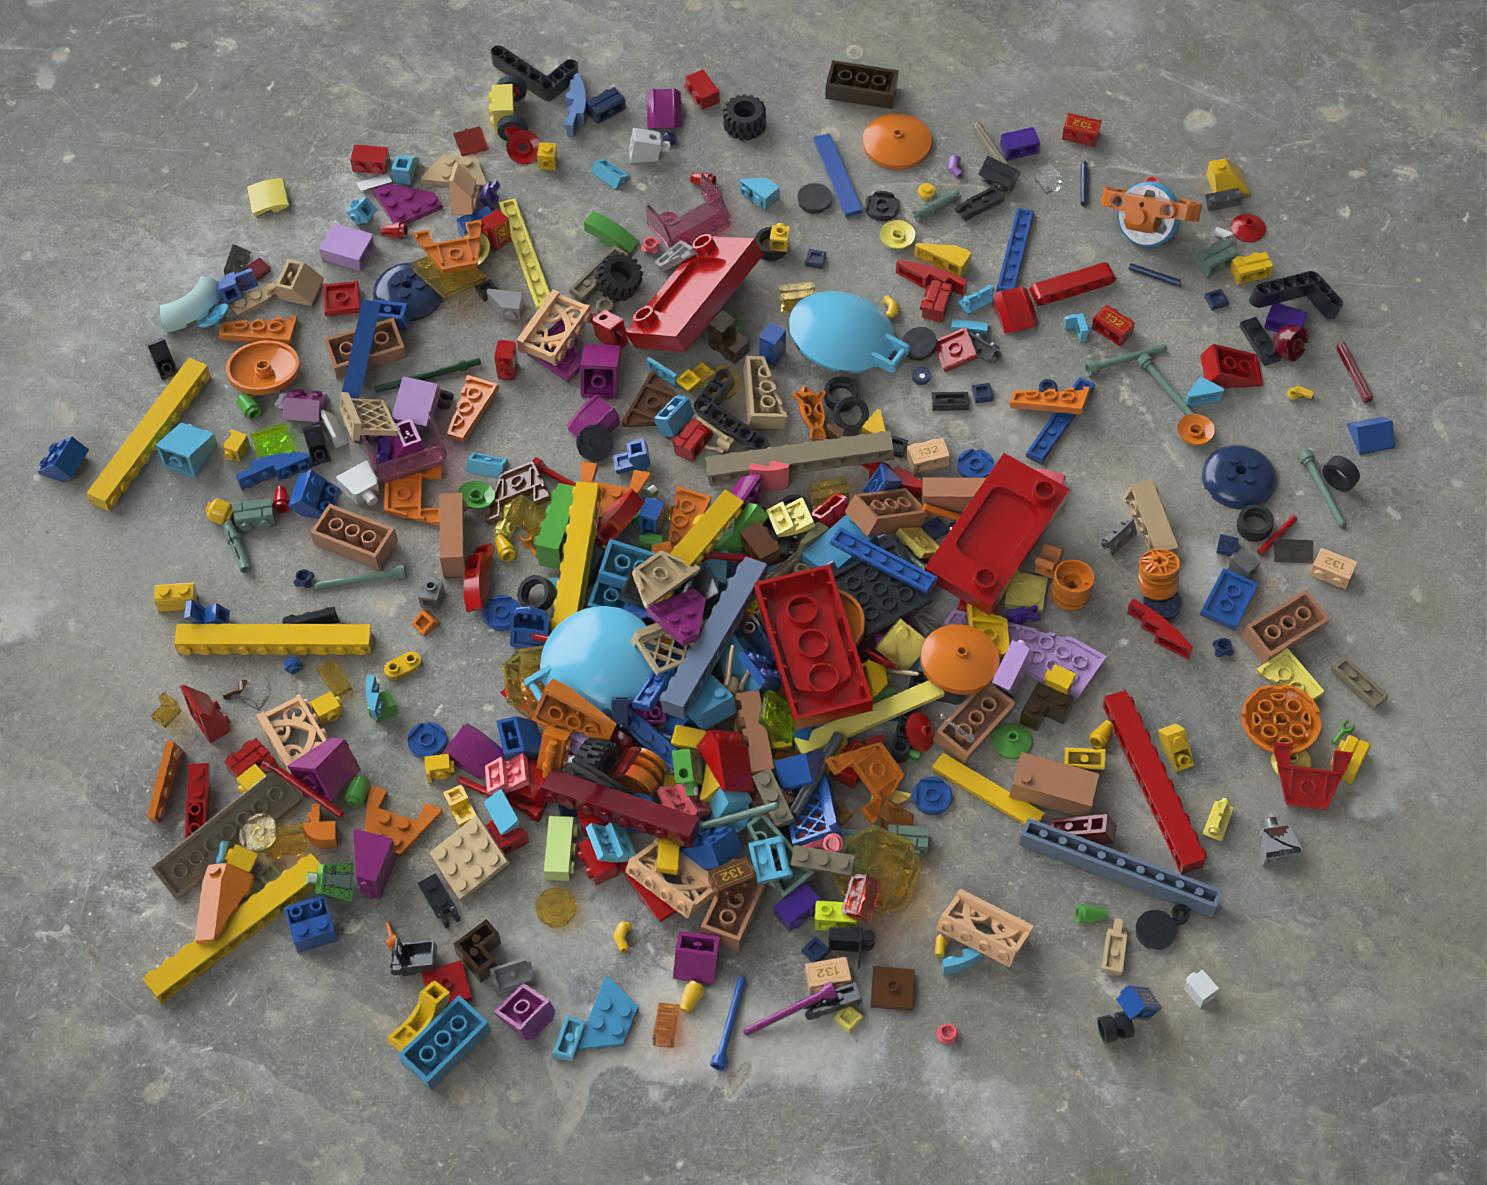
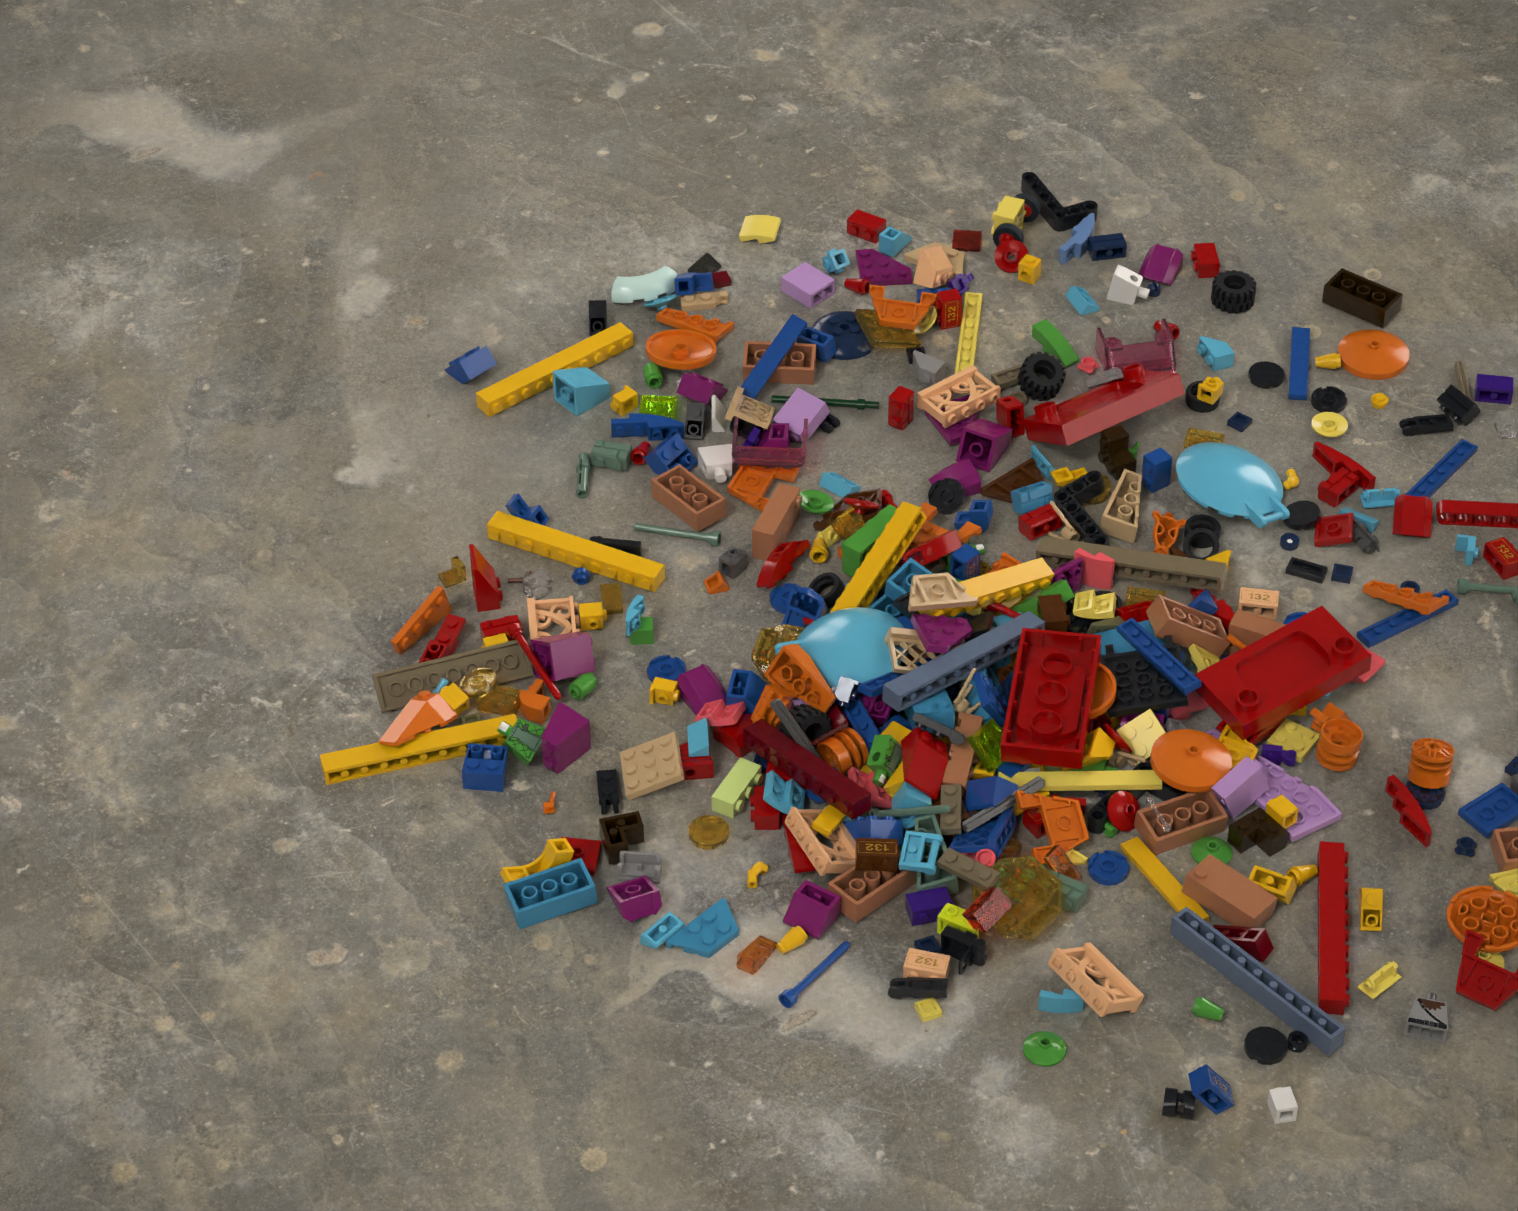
camera: 25 degrees right, 15 degrees down
(174, 596) = (502, 489): yellow brick -> none
(219, 511) = (581, 442): yellow head -> none
(298, 283) = (748, 297): tan slope -> none
(303, 574) = (627, 516): dark blue plate -> none
(341, 298) = (775, 319): red plate -> none
(373, 182) = (860, 245): white sticker -> none
(391, 825) = (603, 728): orange wing -> none
(402, 665) = (677, 609): yellow plate -> none
(413, 957) = (559, 821): black piece -> none
(459, 805) = (666, 723): yellow slope -> none
(473, 403) = (854, 434): orange wing -> none
(529, 490) = (860, 506): none -> red dish
(534, 812) = (730, 754): red piece -> none
(729, 722) = (939, 729): none -> black hinge
(826, 992) = (916, 975): magenta piece -> none
(863, 164) = (1328, 361): none -> yellow cone
(892, 988) = (982, 1001): reddish brown plate -> none
(899, 446) = (1232, 589): black tile -> none
(931, 207) = (1383, 413): sand green pin -> none
(941, 942) = (1052, 981): yellow arm -> none
(946, 257) = (1368, 455): yellow slope -> none
(947, 1034) = (1014, 1053): coral plate -> none
(953, 166) = (1417, 389): medium lavender arm -> none
(966, 1023) = (1044, 1048): none -> bright green dish
(1114, 949) = (1215, 1044): tan hinge -> none
(1123, 533) = (1413, 726): dark grey hinge -> none
(1151, 516) = (1451, 714): tan wedge -> none

